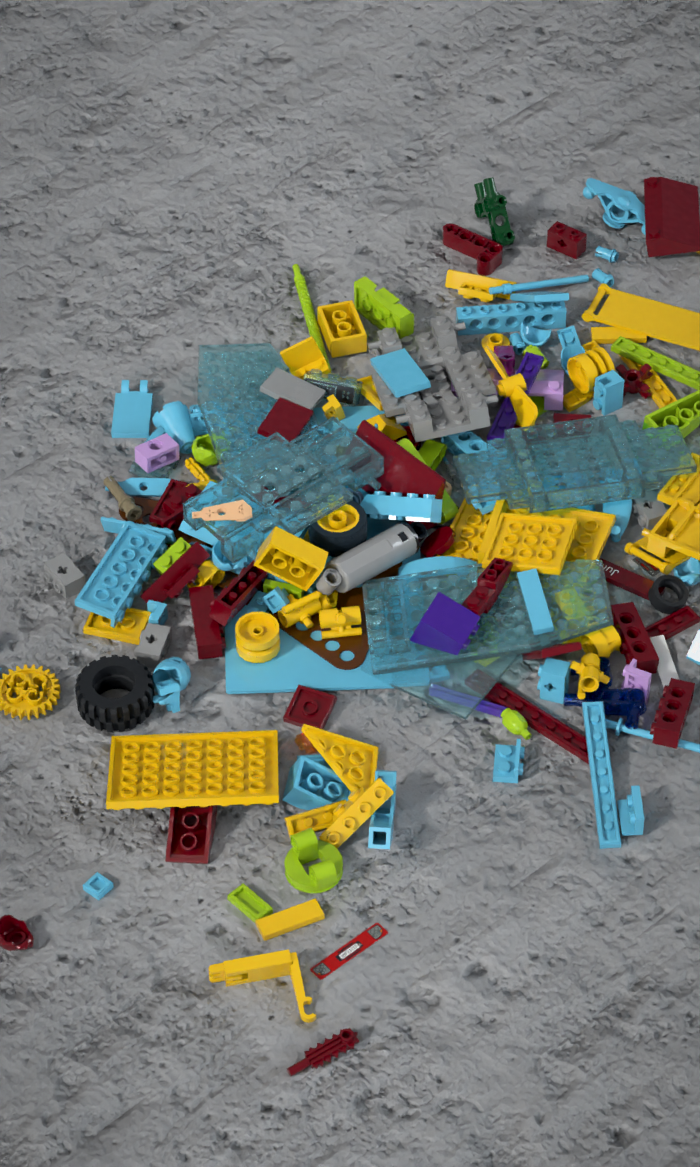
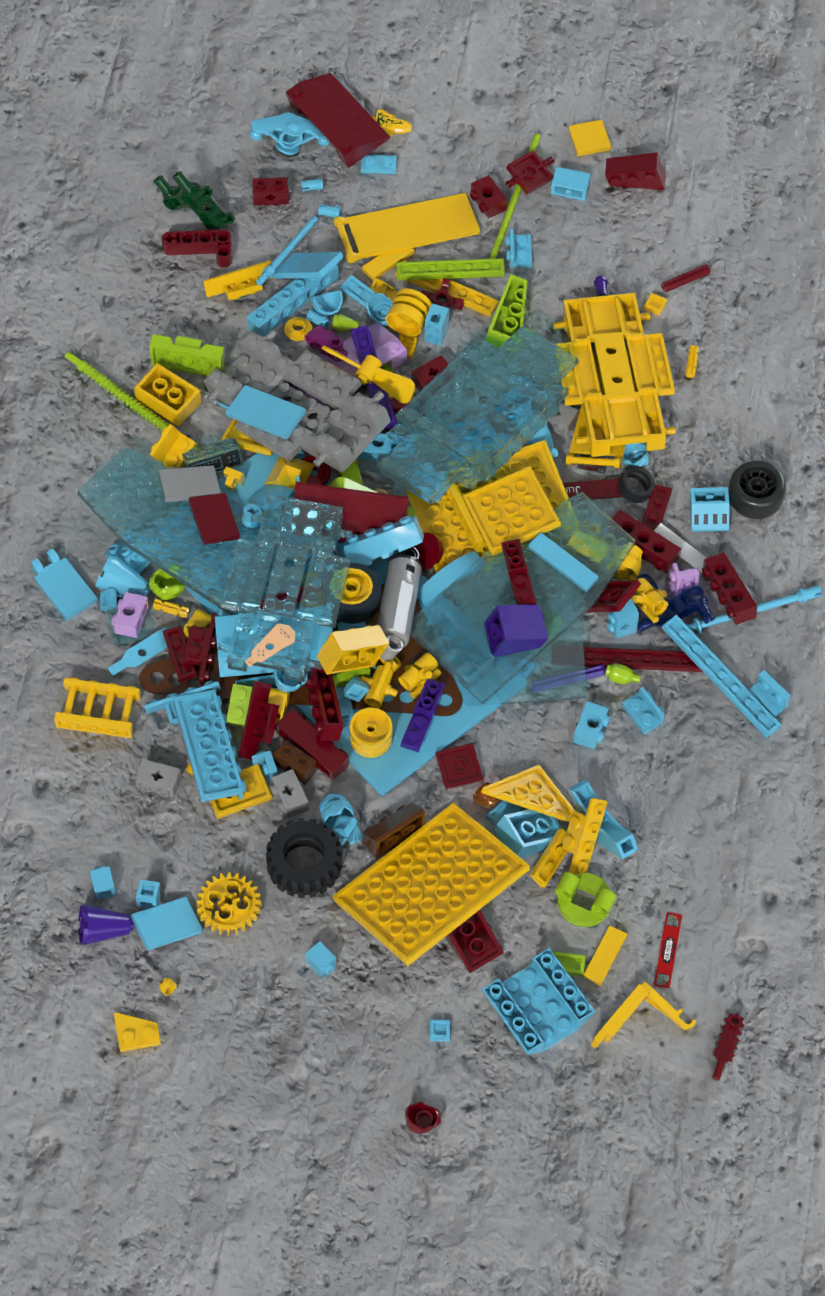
camera: 40 degrees left, 15 degrees up
(55, 773) = (320, 959): none -> medium azure brick
(63, 517) = (103, 724): none -> yellow fence
(125, 502) = (147, 678): dark tan pin -> none
(181, 626) = (290, 757): none -> reddish brown brick
(191, 918) = (540, 1003): none -> medium azure slope
(207, 718) = (393, 829): none -> reddish brown slope
(316, 652) = (423, 715): none -> dark purple slope
(450, 744) = (594, 715): none -> medium azure brick
(678, 268) = (378, 164): none -> medium azure plate

